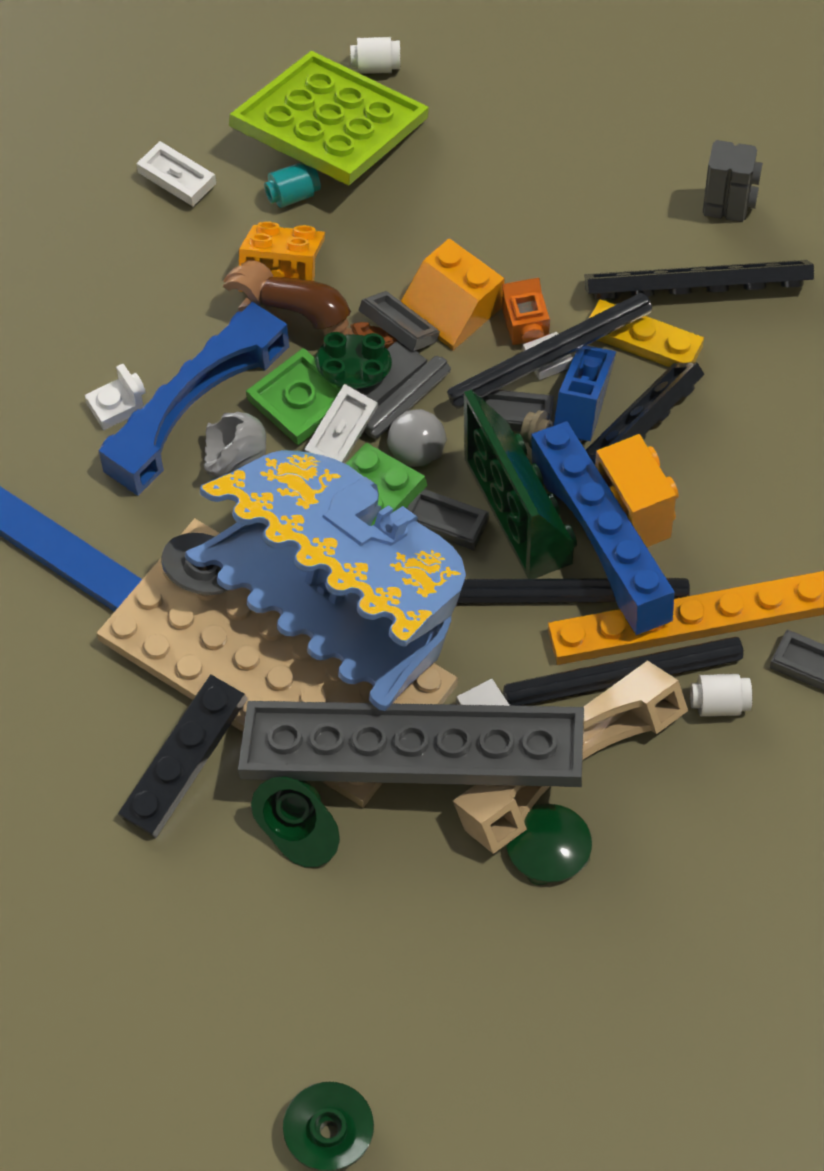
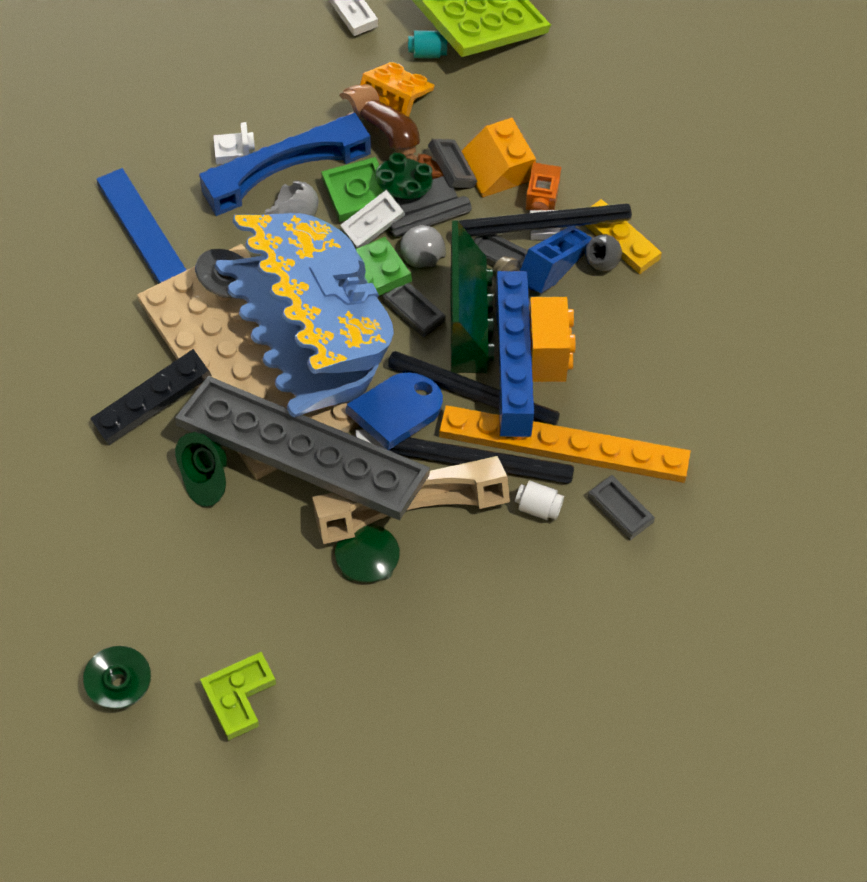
camera: 20 degrees right, 0 degrees up
(475, 1086) = (229, 691): none -> lime plate
(492, 653) = (395, 408): none -> blue tile
(638, 363) = (603, 252): none -> dark grey piece
(651, 406) = (600, 285): black plate -> none
(714, 278) = (690, 213): black plate -> none
(730, 181) = (736, 149): dark grey brick -> none

